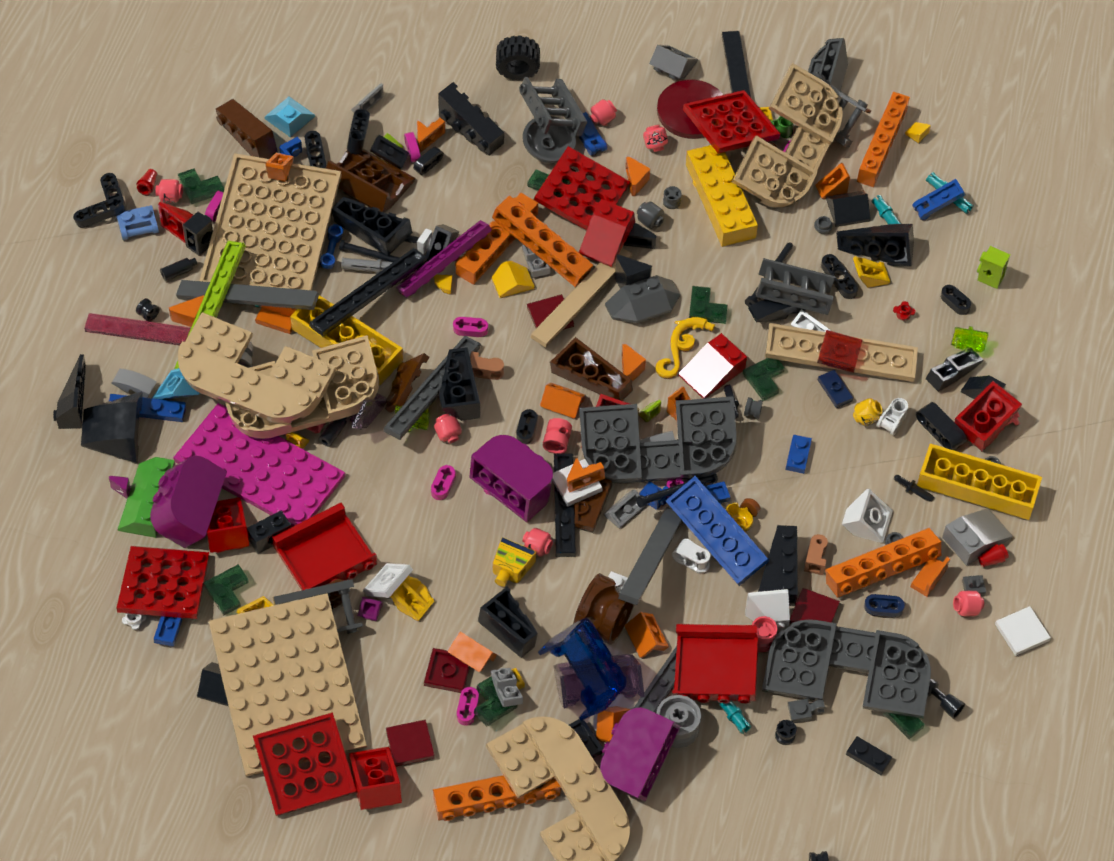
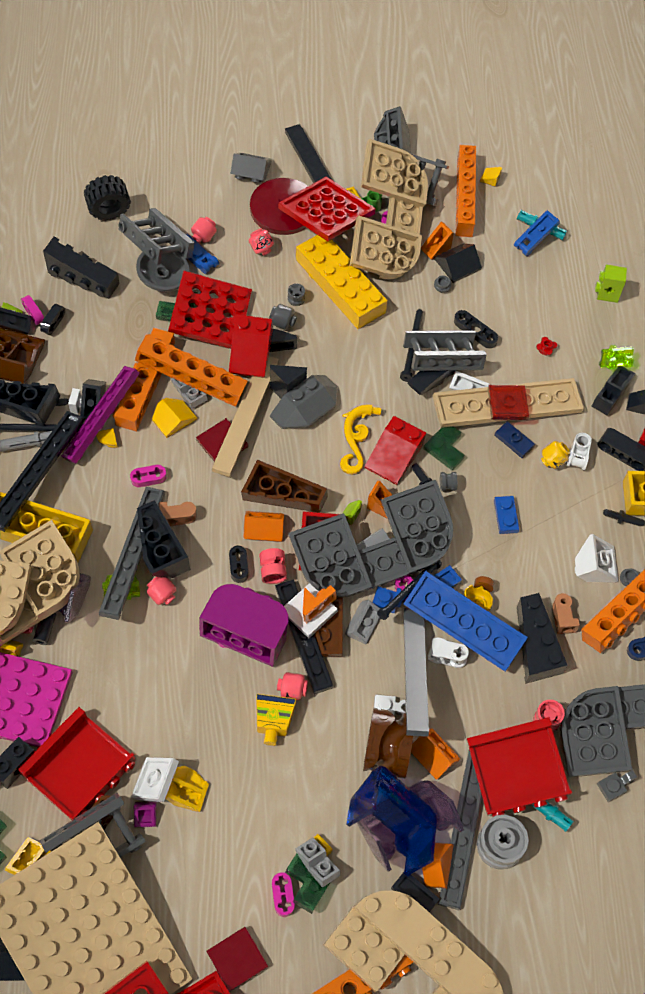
camera: 20 degrees left, 5 degrees up
(401, 386) = (101, 548): reddish brown wing -> none
(429, 135) = (44, 294): orange slope -> none
(439, 480) = (180, 649): dark pink beam -> none
(446, 672) = (248, 859): dark red tile -> none
(471, 652) = (267, 832): orange panel -> none
(508, 623) = (294, 787): black wedge -> none
(632, 362) = (317, 468): orange slope -> none
(637, 174) = (255, 280): orange slope -> none
(637, 751) = (481, 897): magenta brick -> none
(702, 308) = (362, 395): clear green plate -> none
(770, 604) = (544, 687): white slope -> none
(788, 728) = (612, 812): black wheel -> none
(814, 607) = (583, 673): dark red tile -> none
(871, 272) = (504, 317): yellow slope -> none
(884, 210) = (494, 258): teal pin -> none
(885, 243) = (506, 286): black wedge -> none
(954, 300) = (587, 322): black beam -> none

